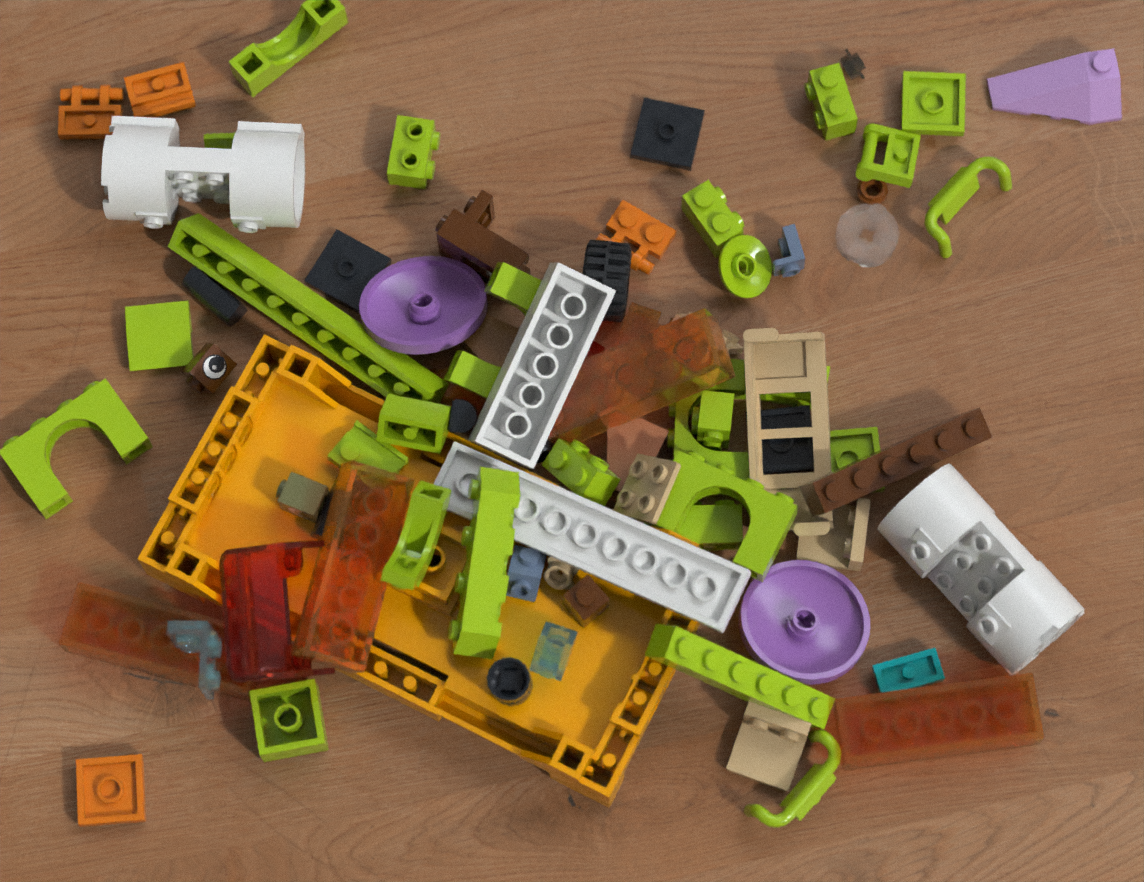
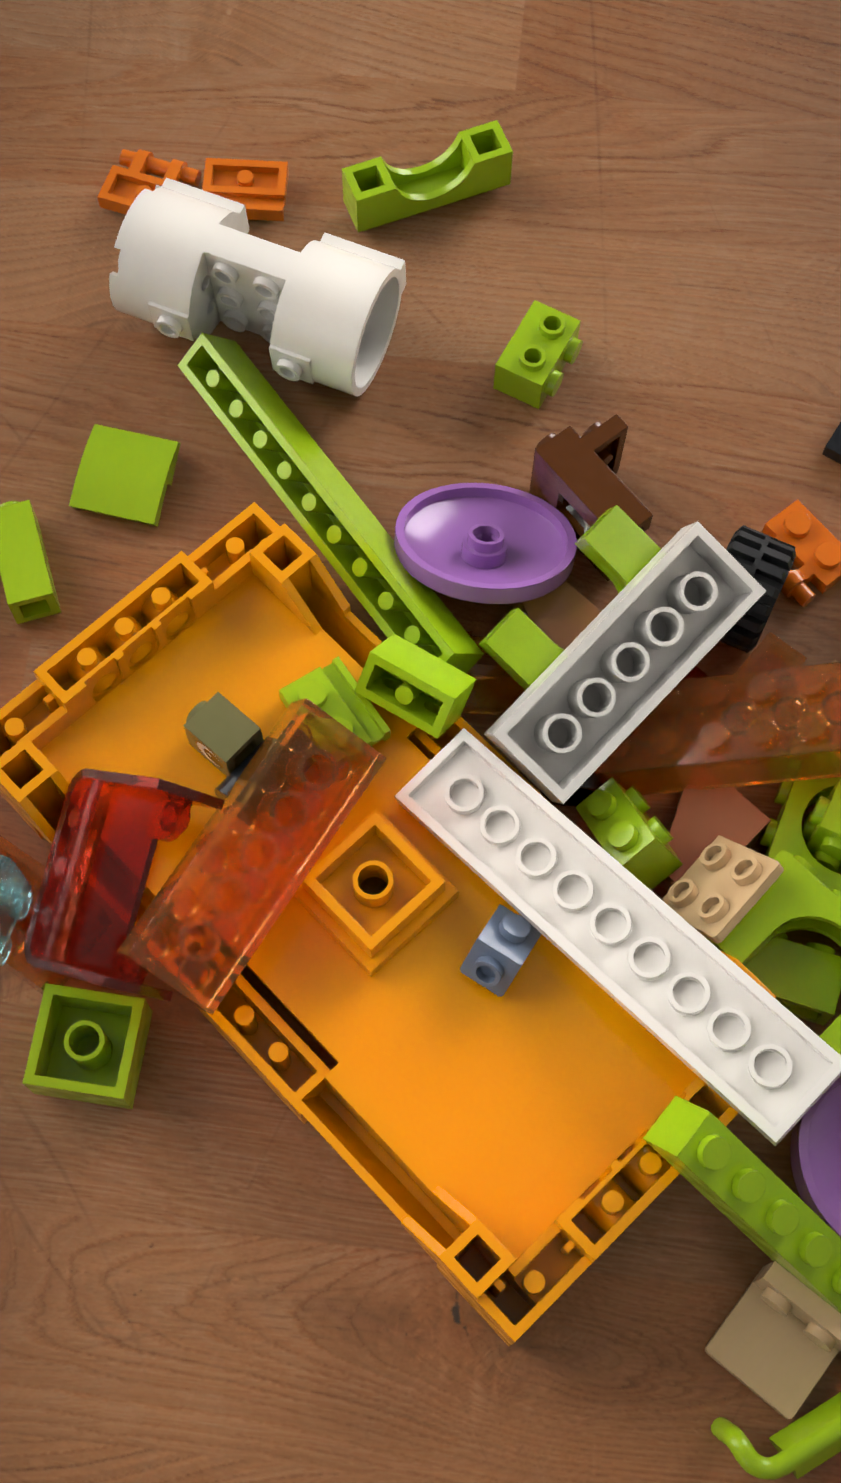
camera: 15 degrees right, 5 degrees down
(208, 369) = (169, 533): reddish brown brick -> none
(214, 296) = (214, 448): black brick -> none
(345, 269) = (397, 470): black plate -> none
(419, 536) = (362, 844): lime arch -> none
(462, 416) = (486, 700): black brick -> none
(484, 577) = (440, 932): lime brick -> none
(510, 681) = (423, 1104): black wheel -> none
(553, 651) = (504, 1081): clear light blue brick -> none
(555, 578) = (545, 976): tan plate -> none
(585, 601) = (577, 1022): reddish brown brick -> none

